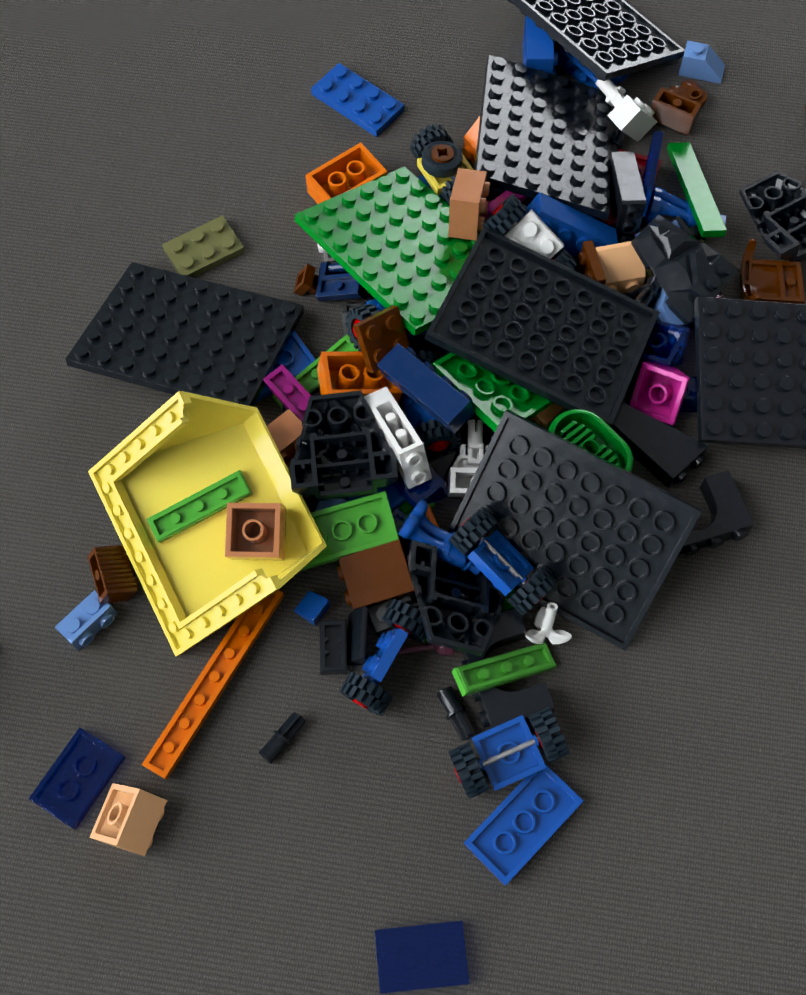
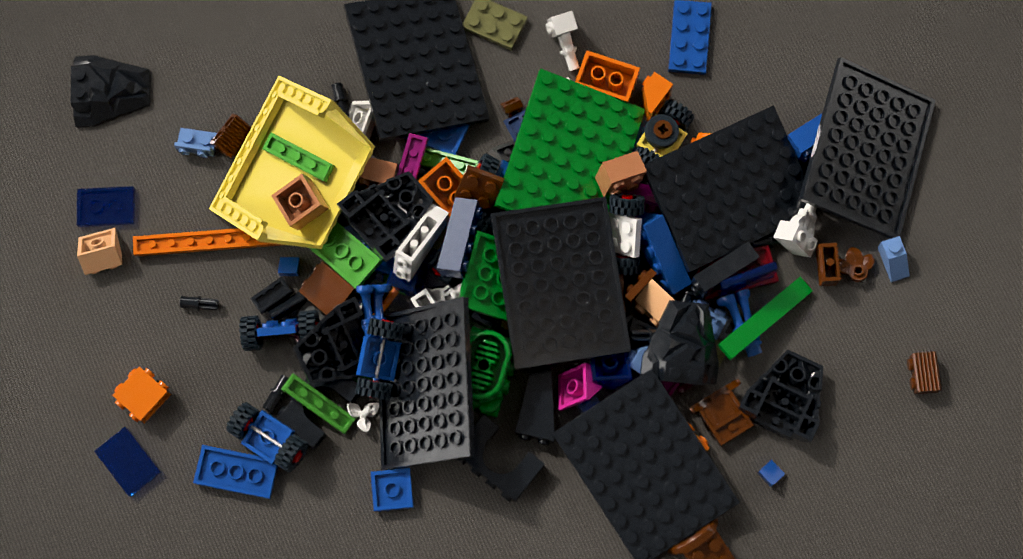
camera: 60 degrees right, 10 degrees up
(268, 189) = (561, 26): none -> white brick
(348, 880) = (141, 394): none -> orange brick
(397, 147) = (655, 92): none -> orange slope
(657, 652) = (392, 489): none -> blue plate

